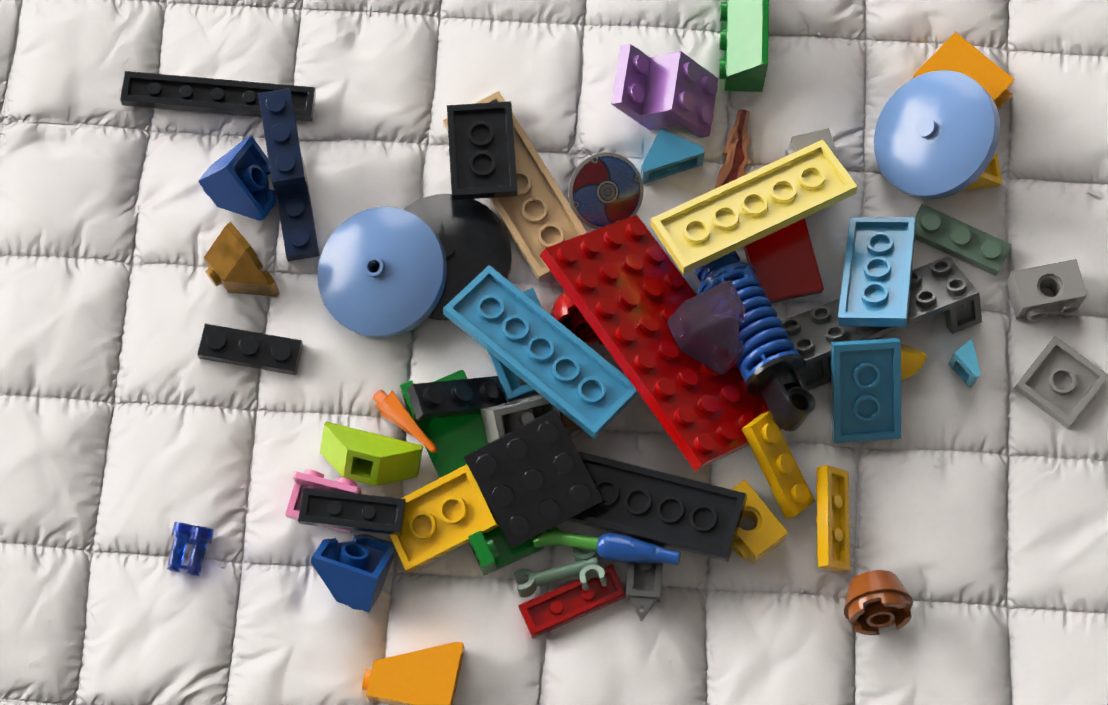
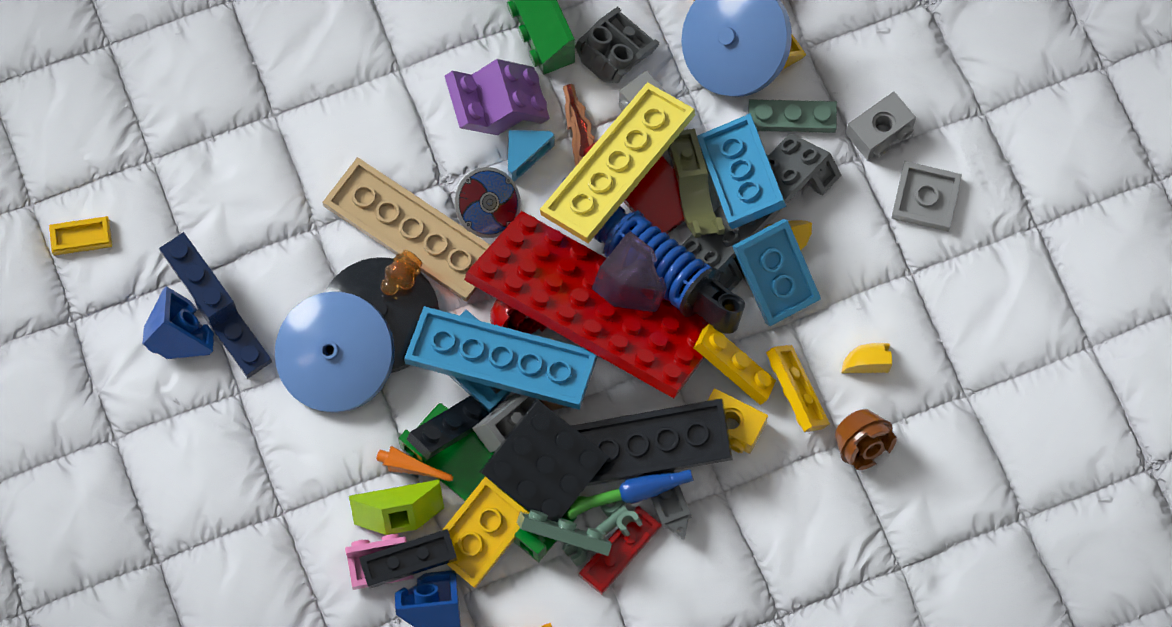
camera: 25 degrees left, 0 degrees up
(196, 52) = (80, 235): none -> yellow tile
(208, 94) = (110, 267): black plate -> none
(236, 265) = (210, 400): pearl gold slope -> none
(250, 349) = (253, 465): black plate -> none
(481, 150) = (369, 213): black plate -> none
(484, 223) = (401, 273): none -> clear orange piece
(520, 556) = (564, 531): none -> sand green plate
(808, 92) = (614, 46): none -> dark grey slope
(823, 264) = (693, 185): none -> olive piece
(921, 522) = (868, 359): none -> yellow brick
(965, 363) = (845, 215): medium azure slope -> none

